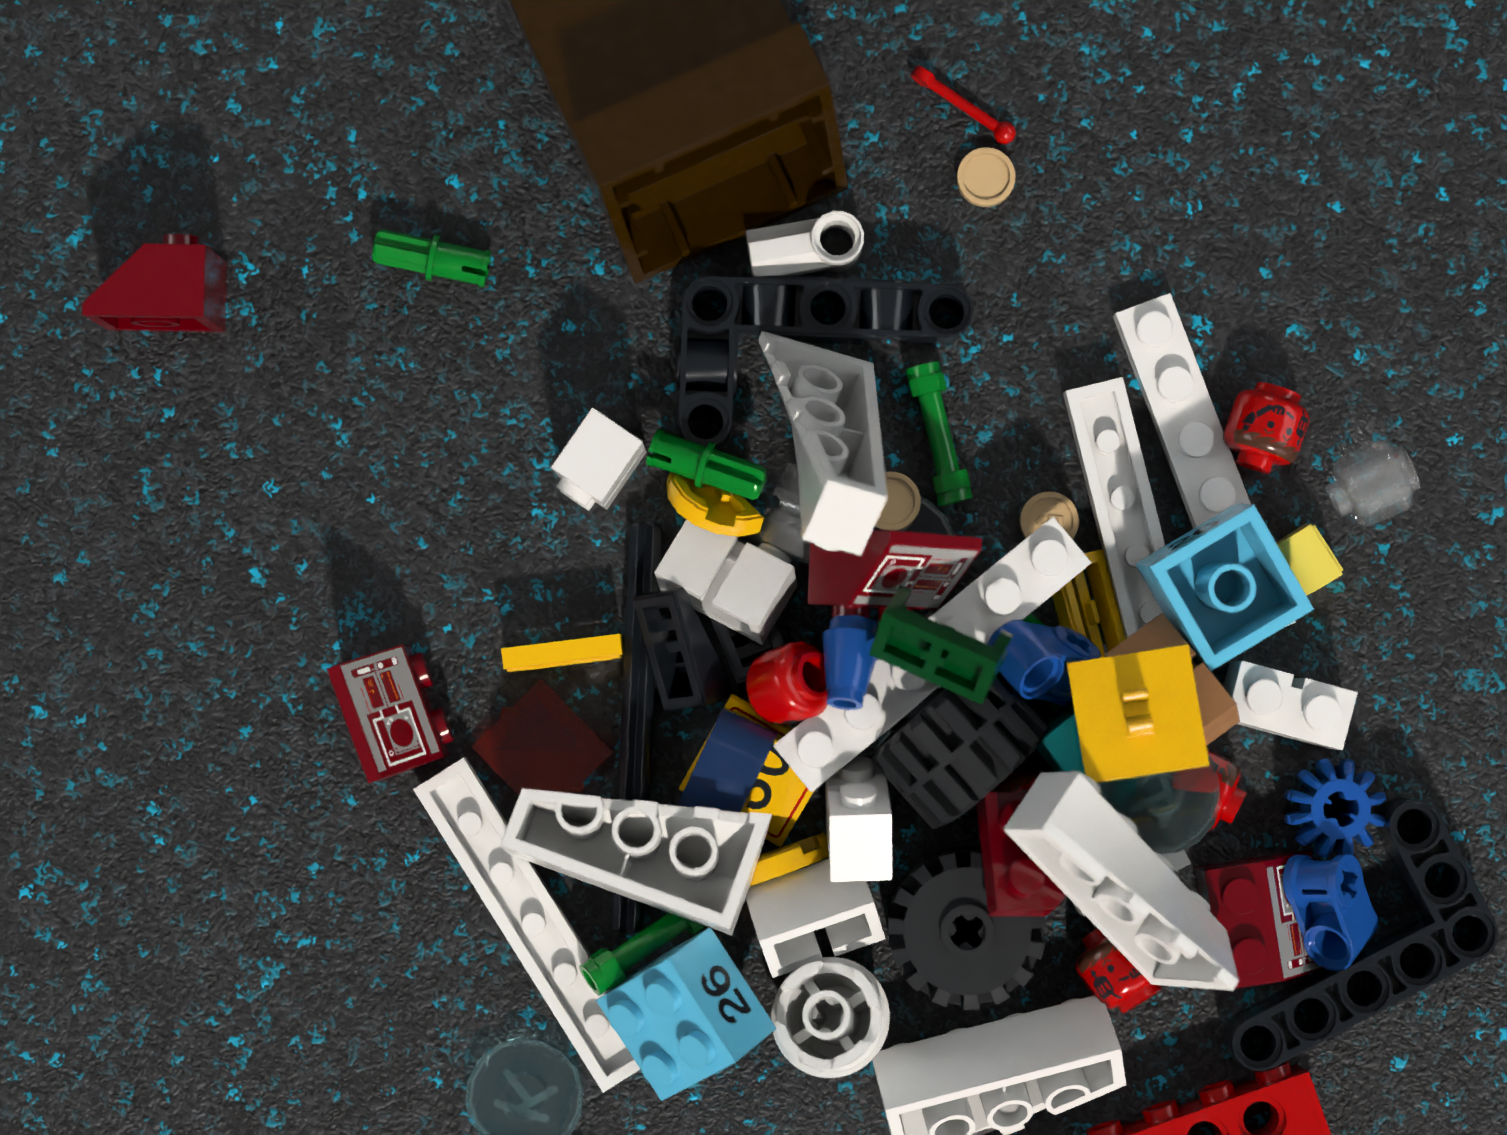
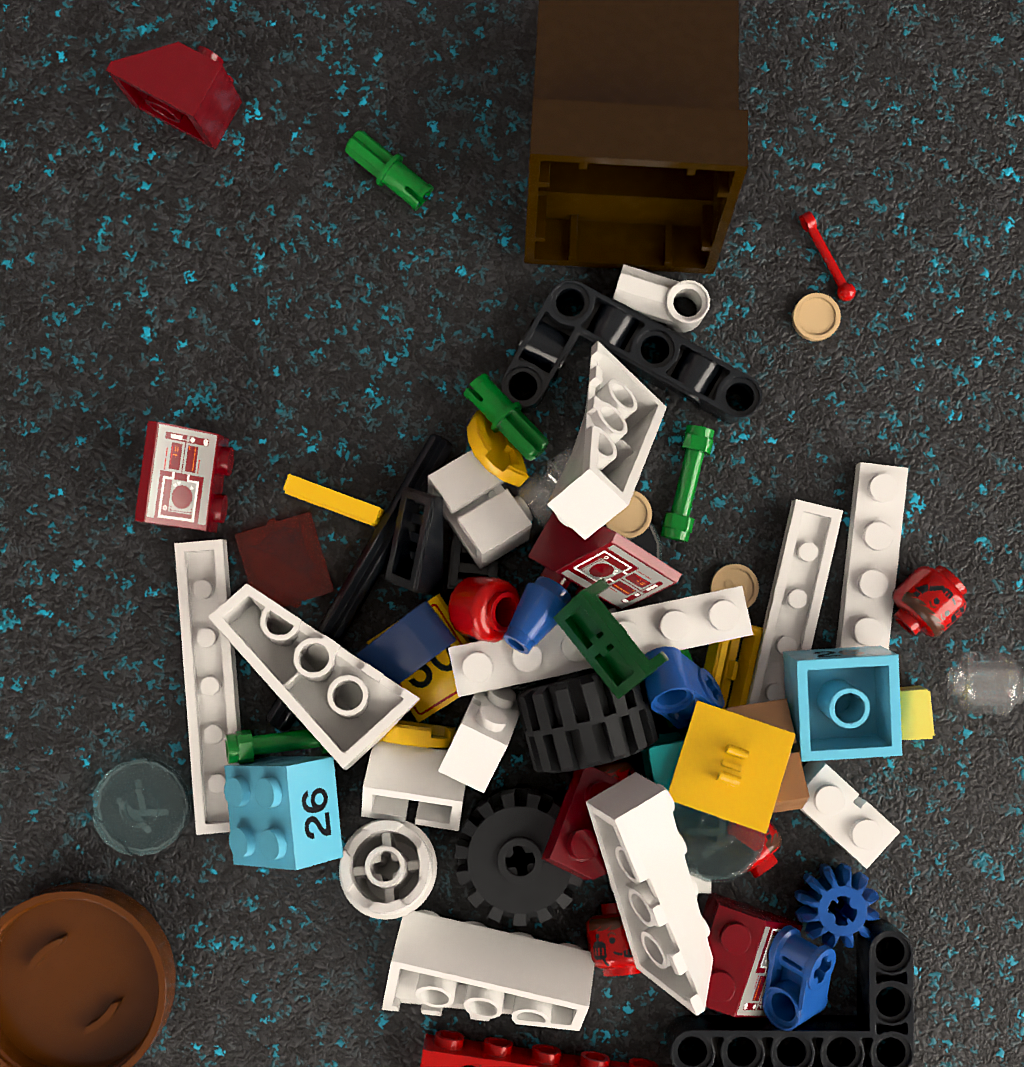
camera: 30 degrees right, 0 degrees up
(597, 461) = (429, 373): white piece -> none

